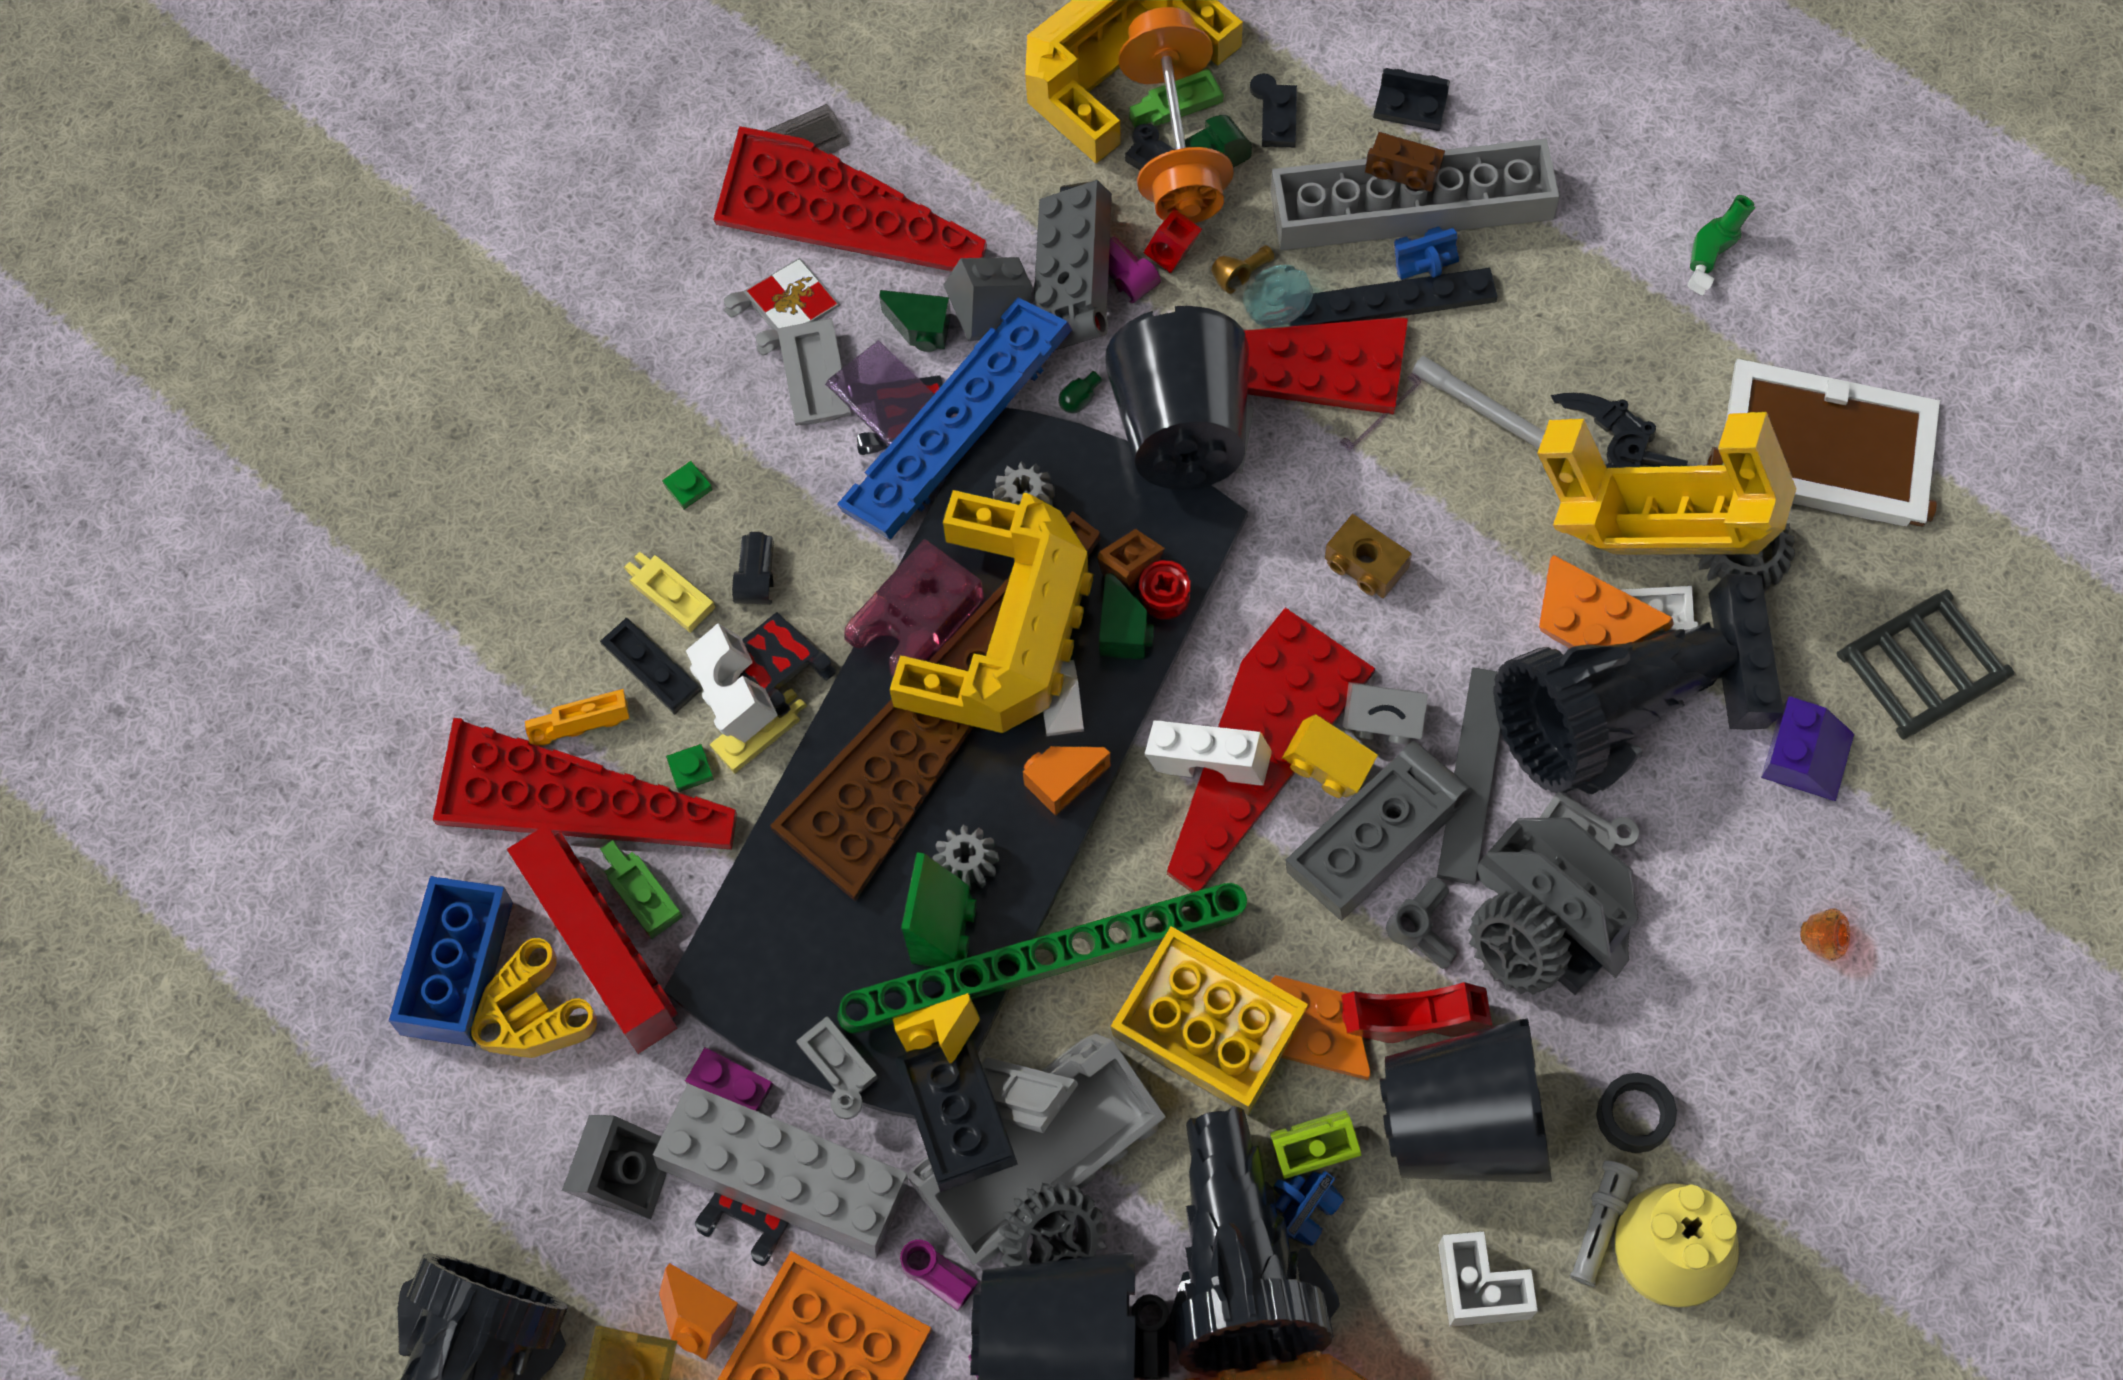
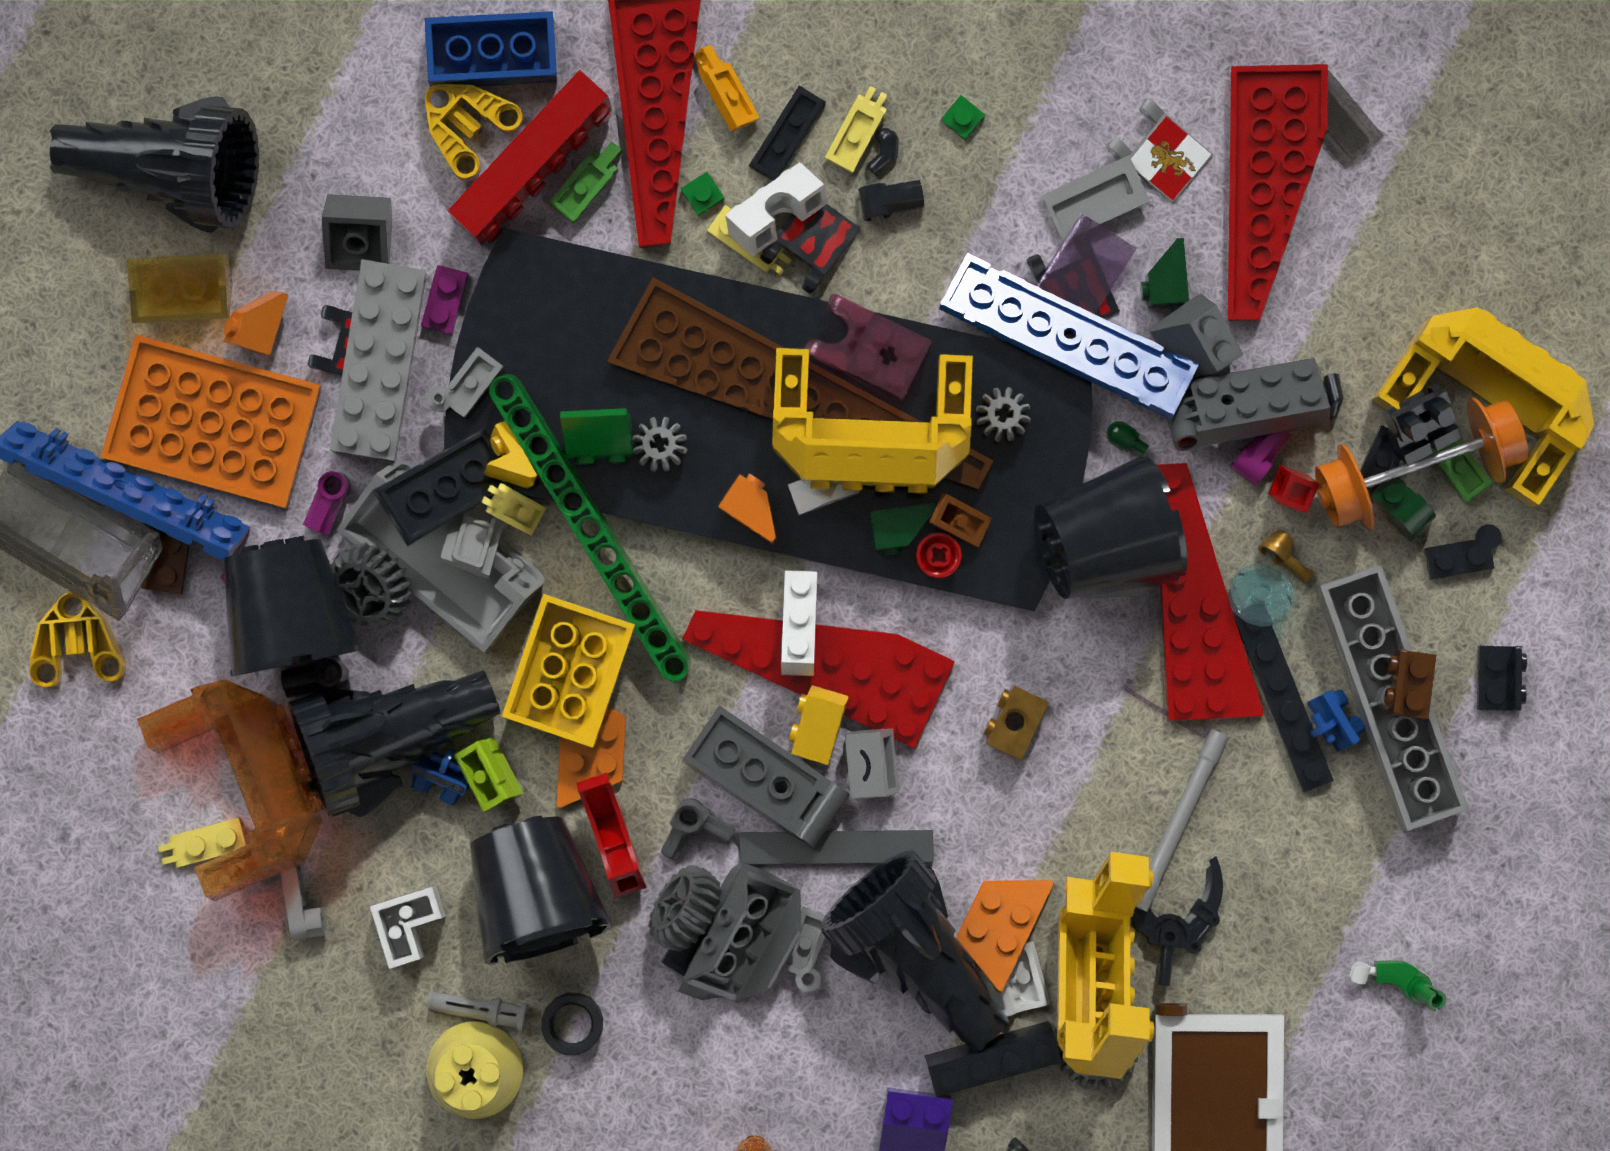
camera: 75 degrees right, 20 degrees up
(694, 562) = (888, 151): none -> black arm
(999, 1042) = (514, 508): none -> light yellow hinge
(1135, 101) = (1420, 424): none -> black hips

